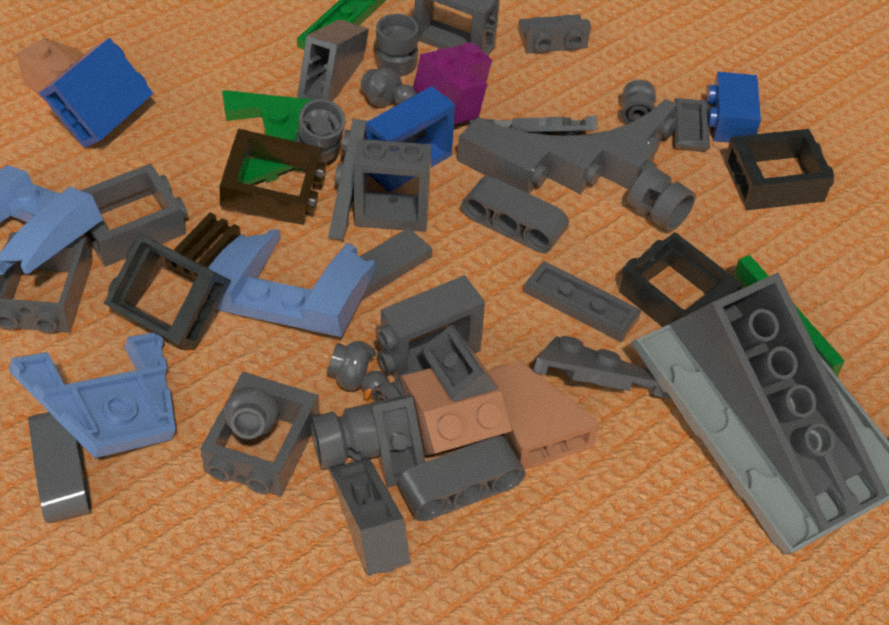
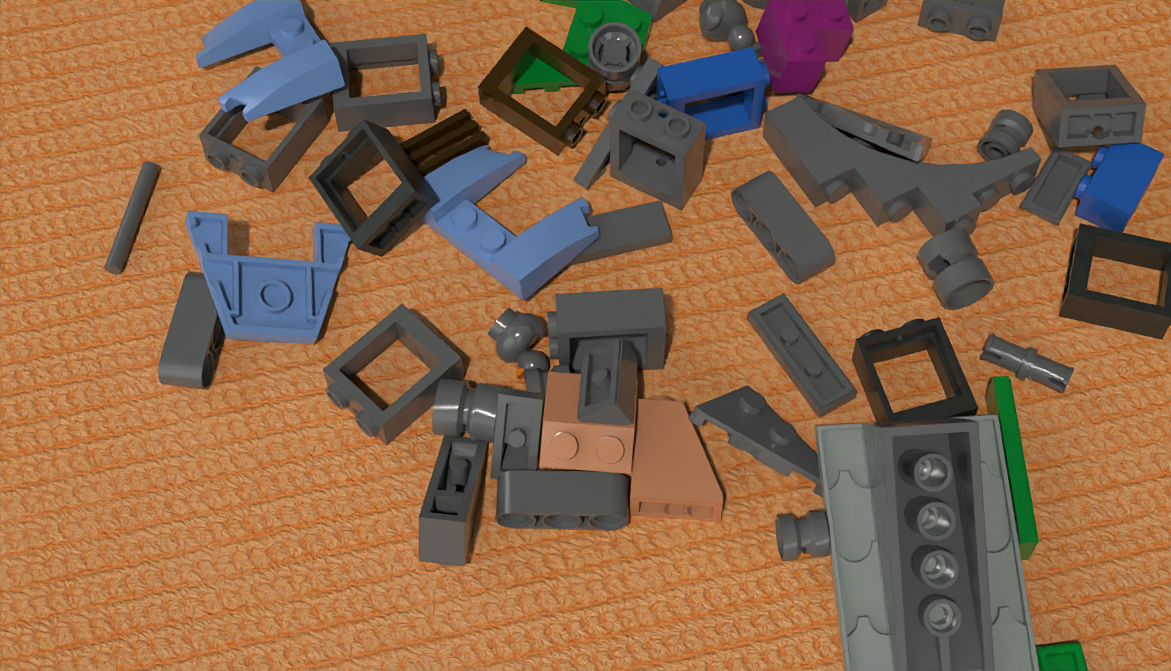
camera: 30 degrees right, 10 degrees up
(250, 412) = (378, 353): dark grey animal -> none
(671, 427) = (802, 535): none -> dark grey wheel
(682, 58) = (1102, 100): none -> dark grey window
(748, 245) = (1027, 363): none -> dark grey pin

